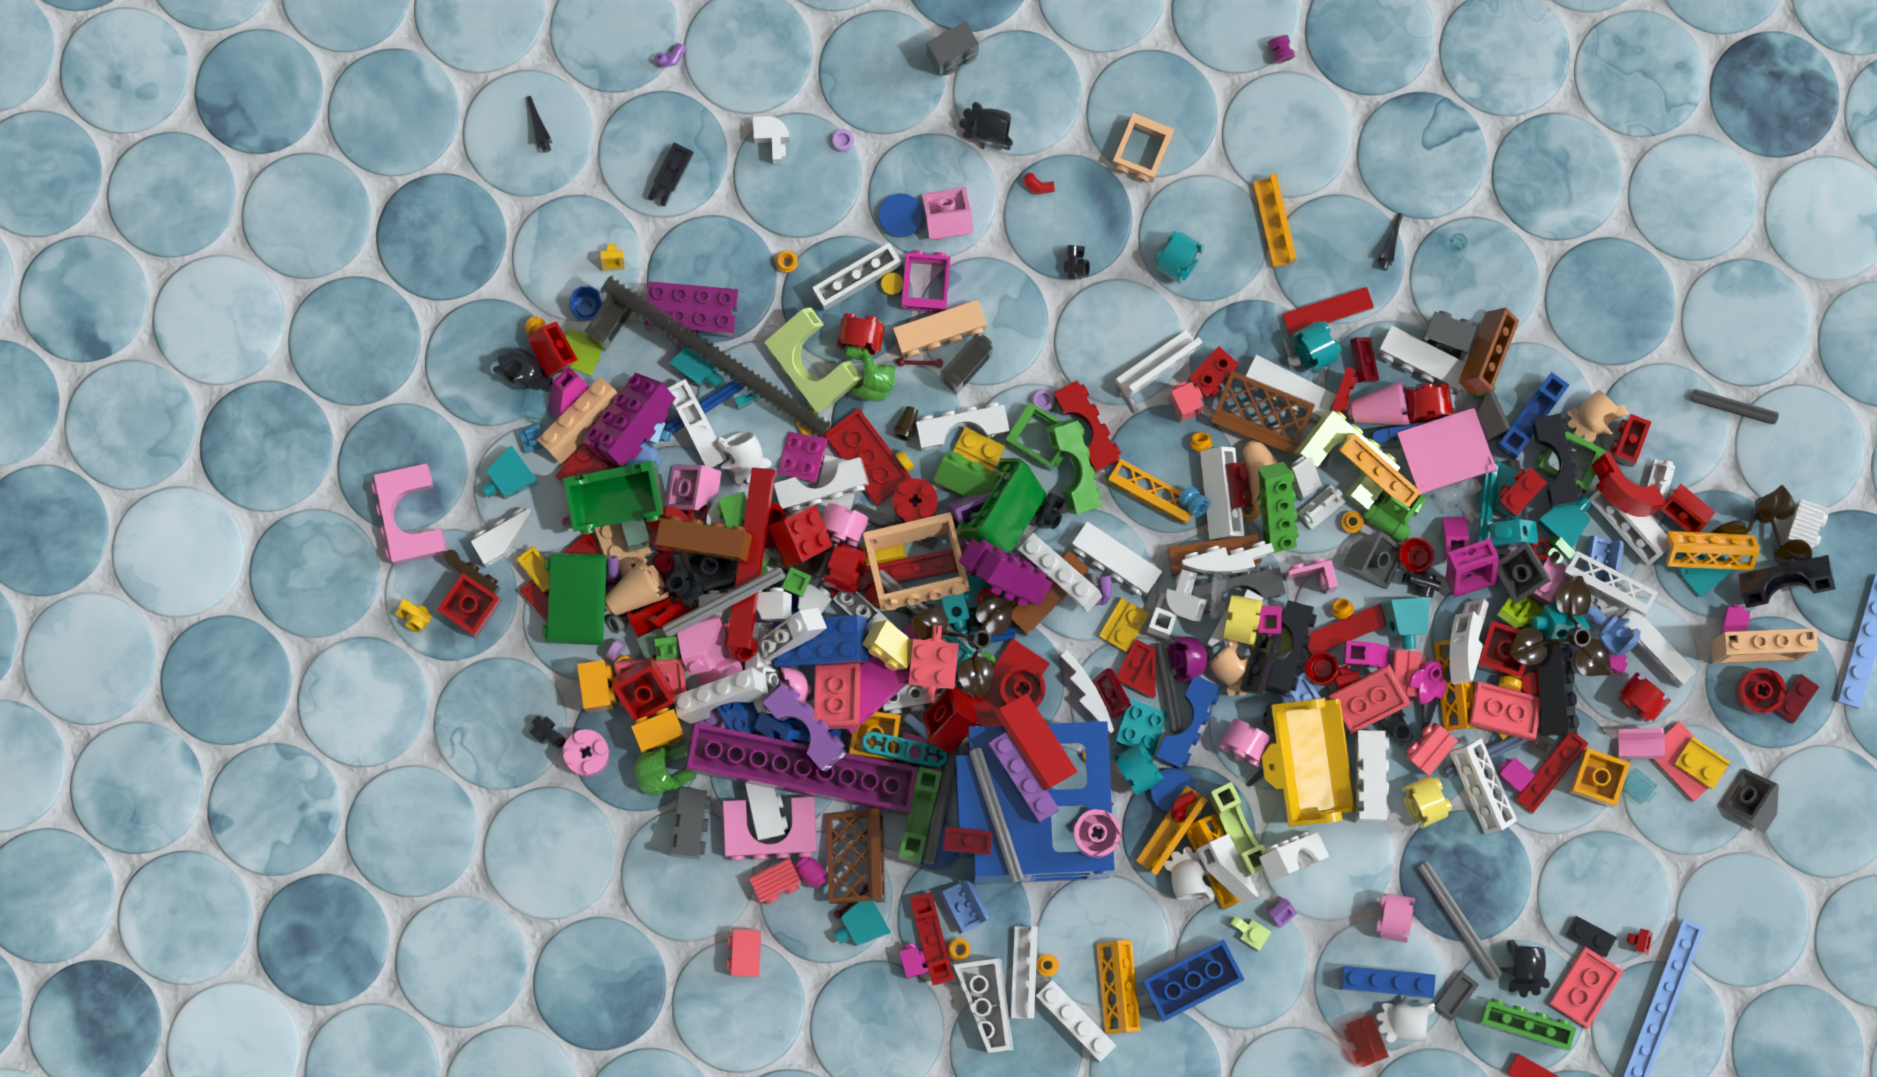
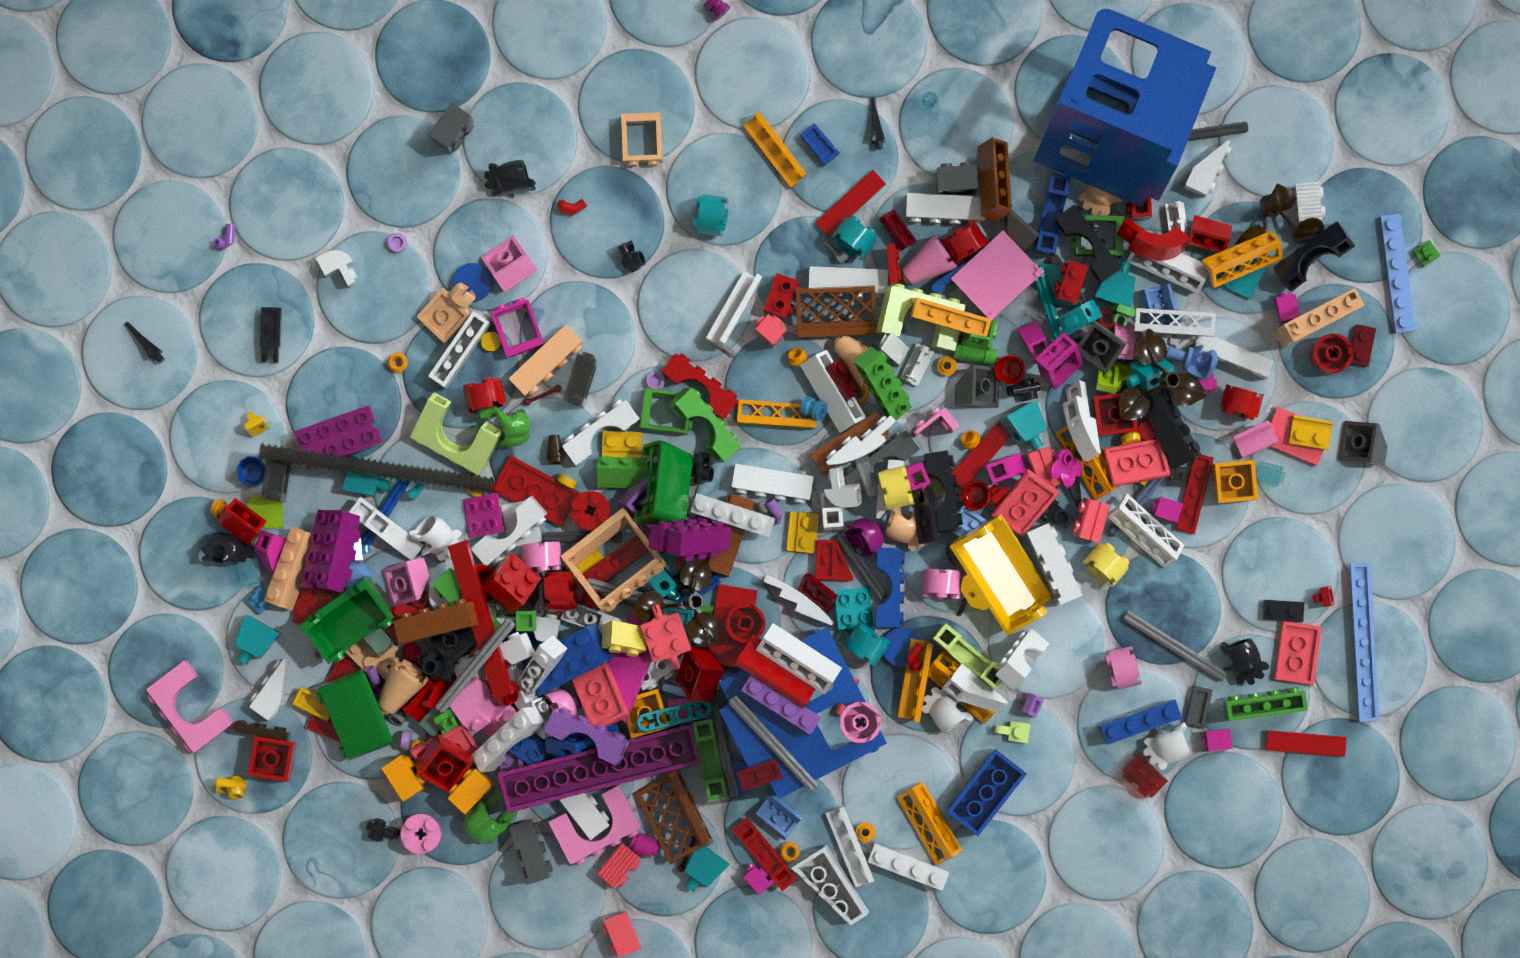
camera: 25 degrees left, 5 degrees up
(862, 232) = (447, 311): none -> light nougat plate
(1063, 739) = (798, 658): none -> white brick
(1323, 236) = (819, 144): none -> blue plate
(1460, 1038) = (1217, 740): none -> dark pink brick
(1663, 362) = (1137, 148): none -> blue piece
(1710, 444) = (1202, 175): none -> white slope

